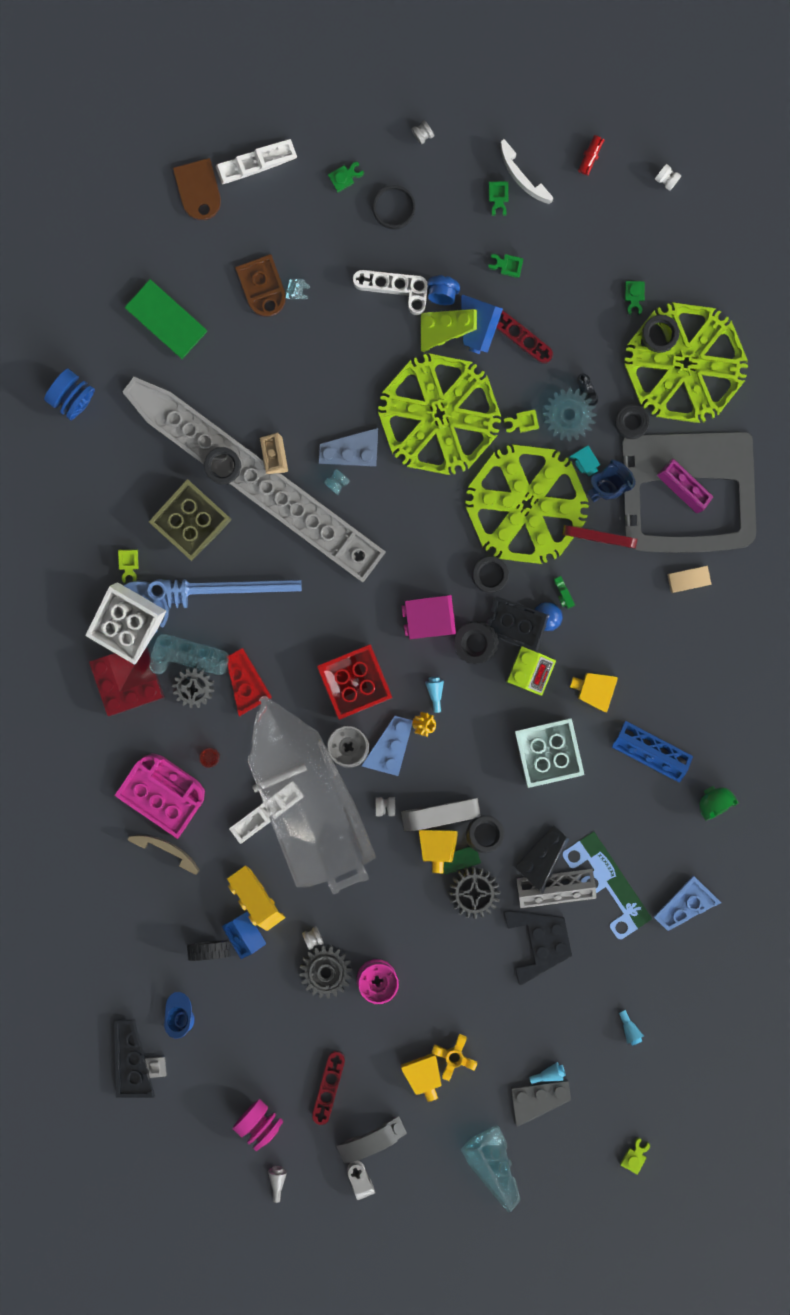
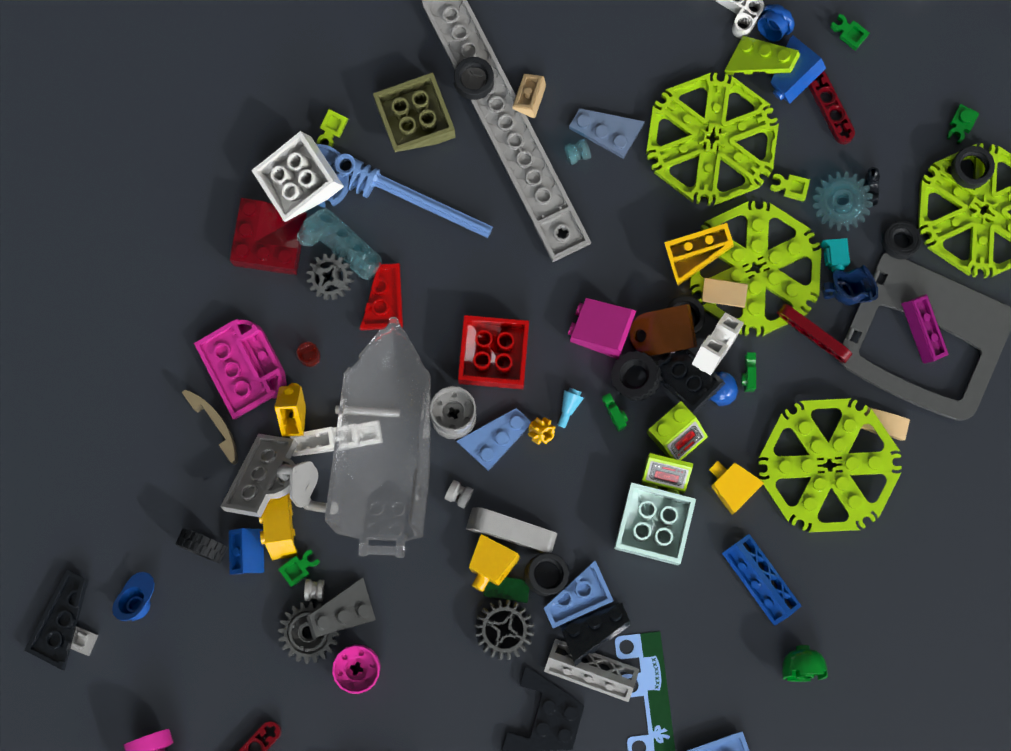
camera: 25 degrees right, 10 degrees down
(217, 803) = (289, 400): none -> yellow torso
(227, 871) = (271, 475): none -> light grey plate
(290, 929) = (296, 569): none -> green plate
(345, 942) = (342, 612): none -> dark grey wing
(474, 517) = (697, 250): none -> yellow wedge
(478, 681) = (617, 416): none -> green plate
(481, 595) = (665, 330): none -> reddish brown tile
(512, 540) = (724, 292): none -> tan slope
(519, 838) = (579, 597): none -> medium blue wing
(528, 586) = (717, 343): none -> white arch
(539, 709) = (666, 473): none -> slope
(661, 618) = (840, 482): none -> lime plate

